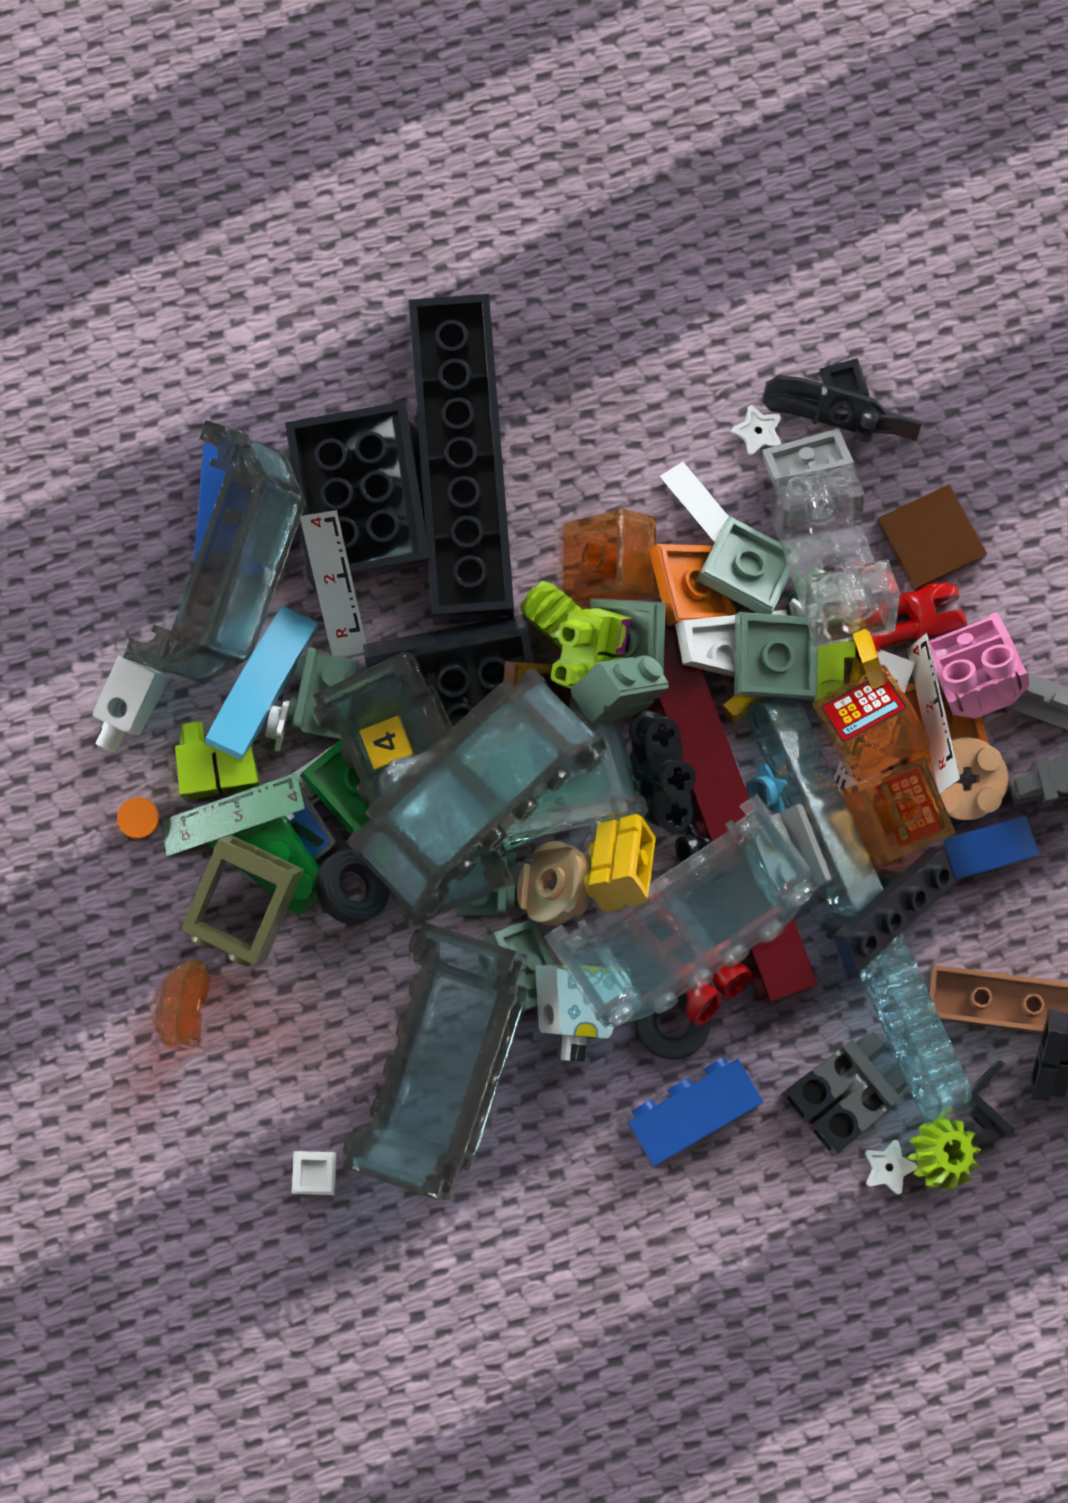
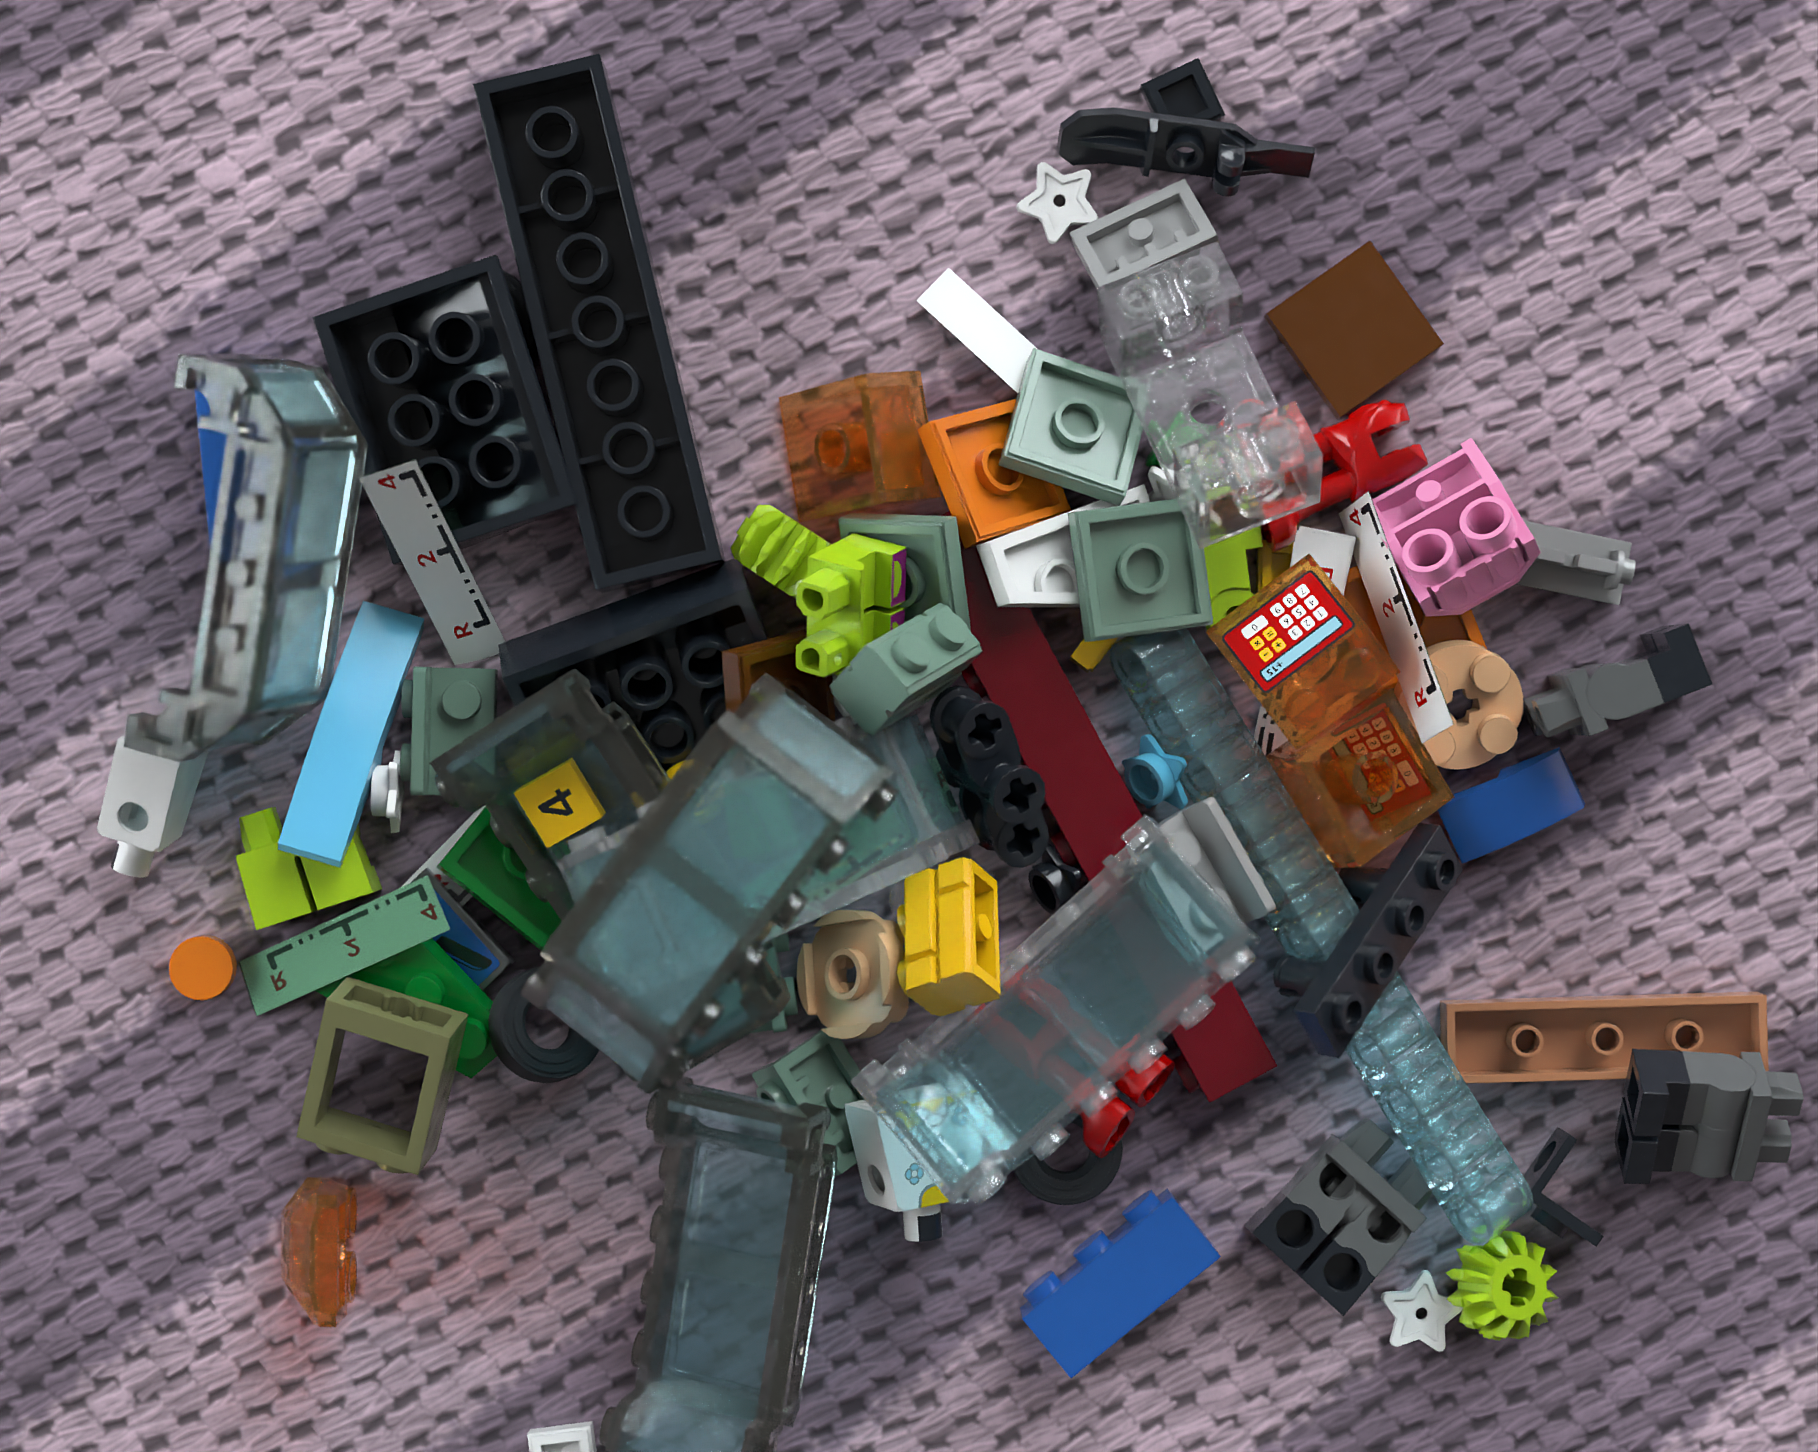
camera: 10 degrees left, 10 degrees up
(869, 658) = (1287, 554): yellow tile -> none

